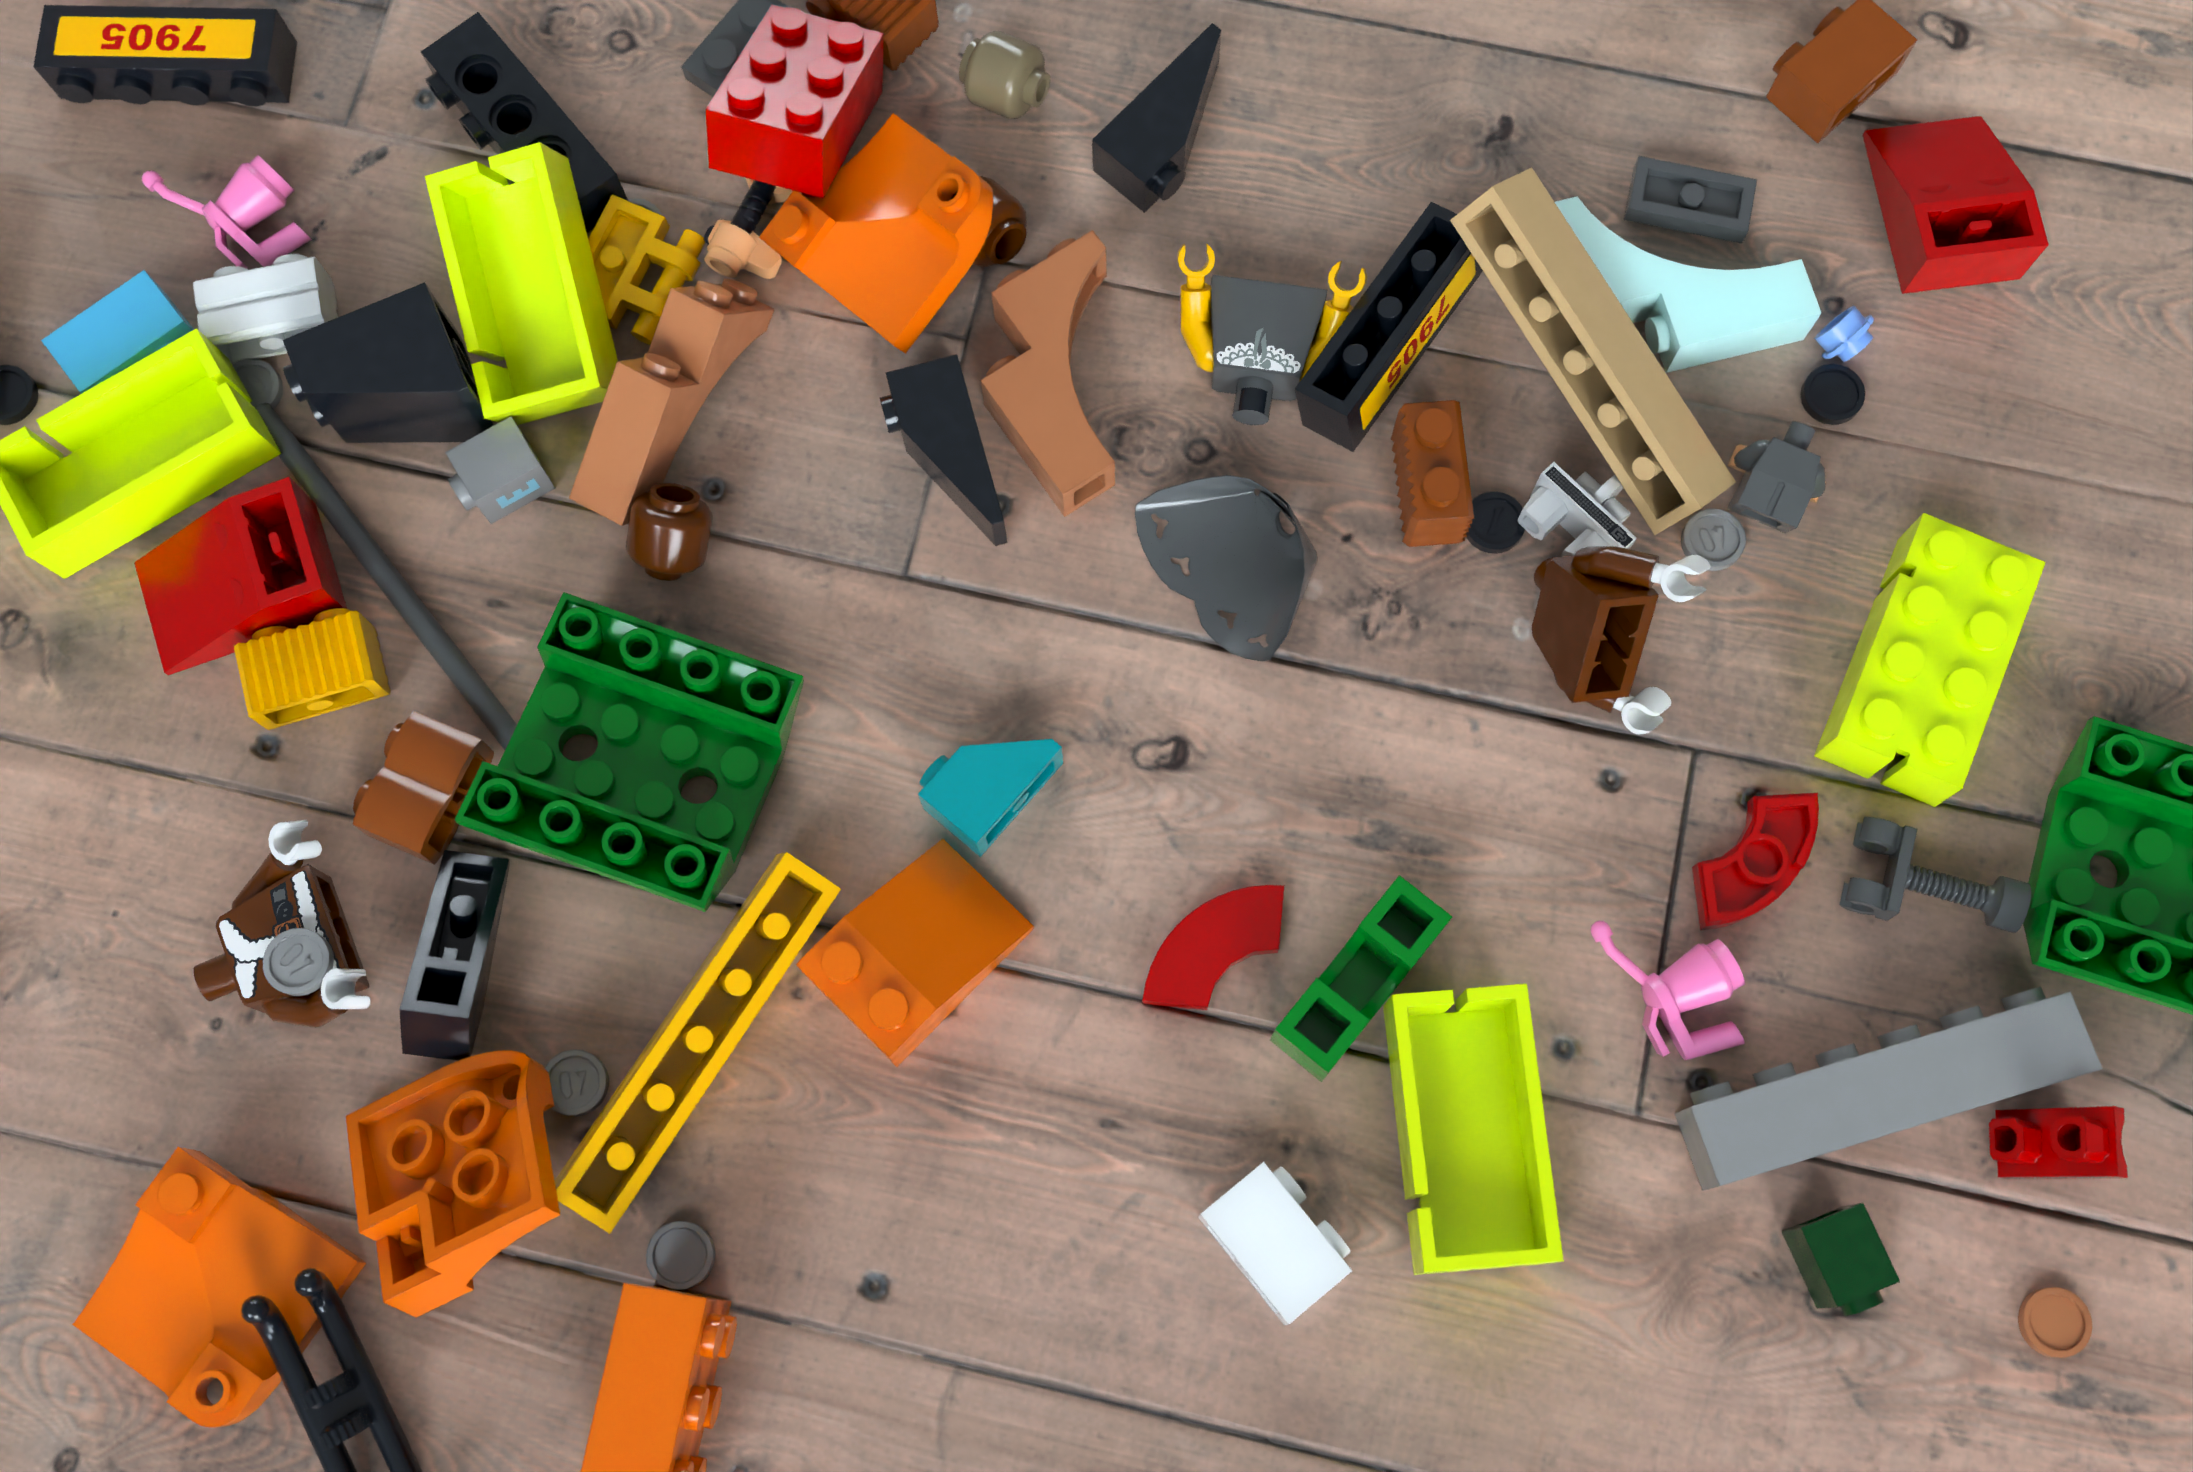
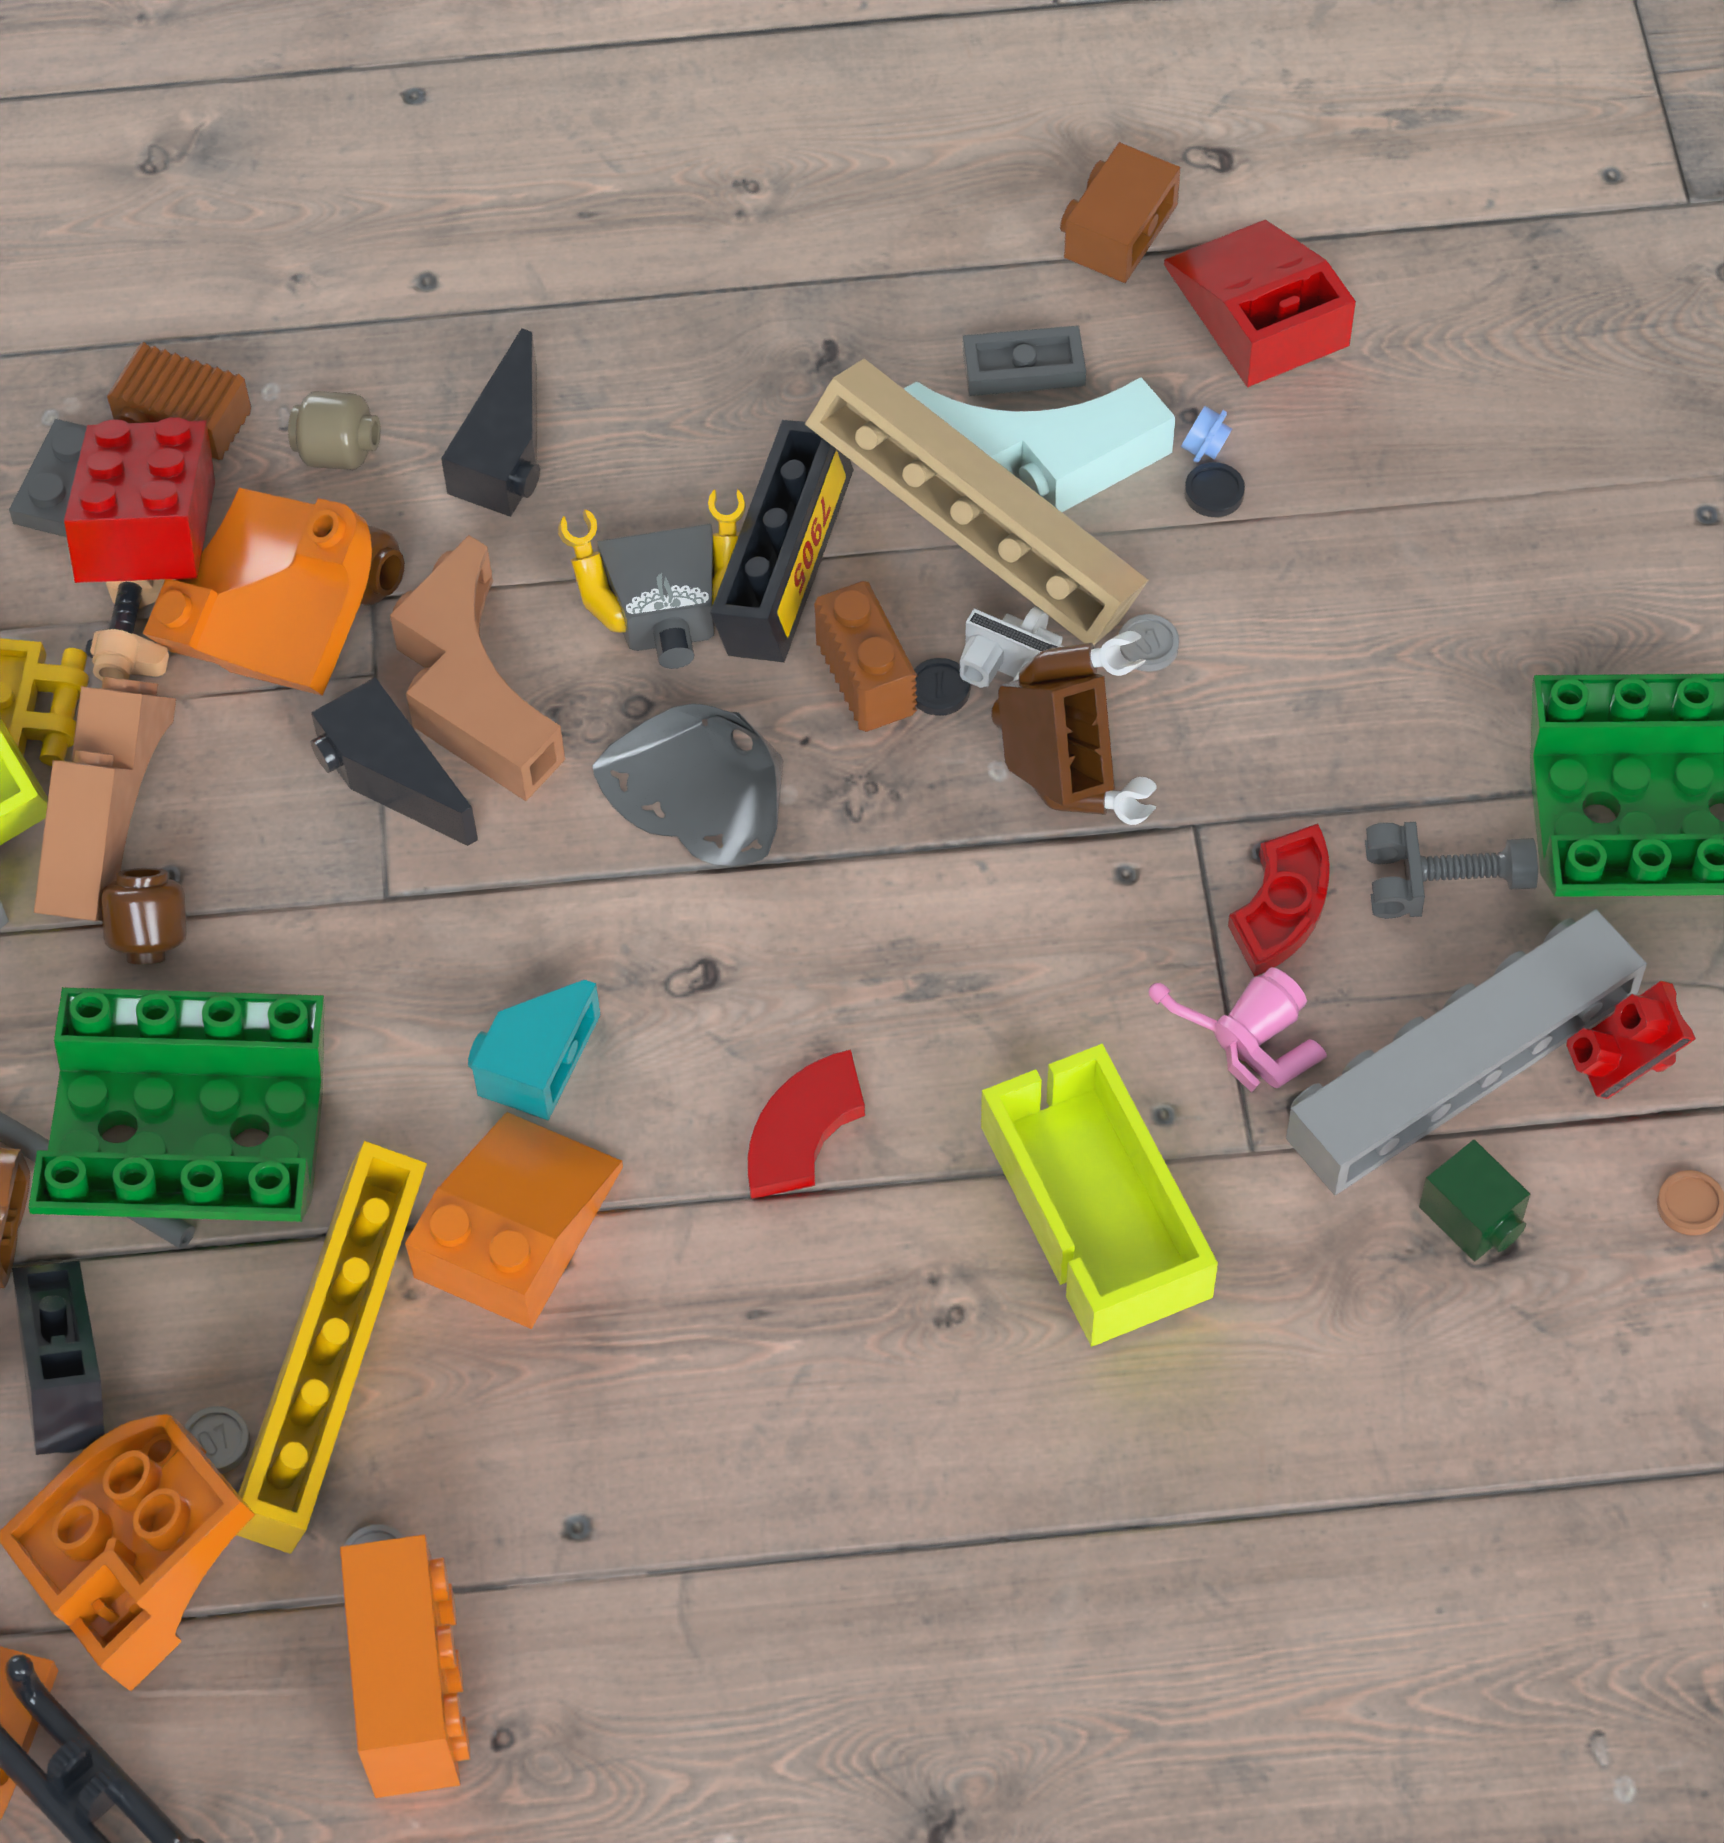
camera: 20 degrees left, 15 degrees down
(1277, 1242) = (950, 1354): white brick -> none
(1360, 978) = (942, 1124): green arch -> none
(1778, 478) = (1187, 569): dark grey piece -> none
(1930, 660) = (1377, 679): neon yellow piece -> none

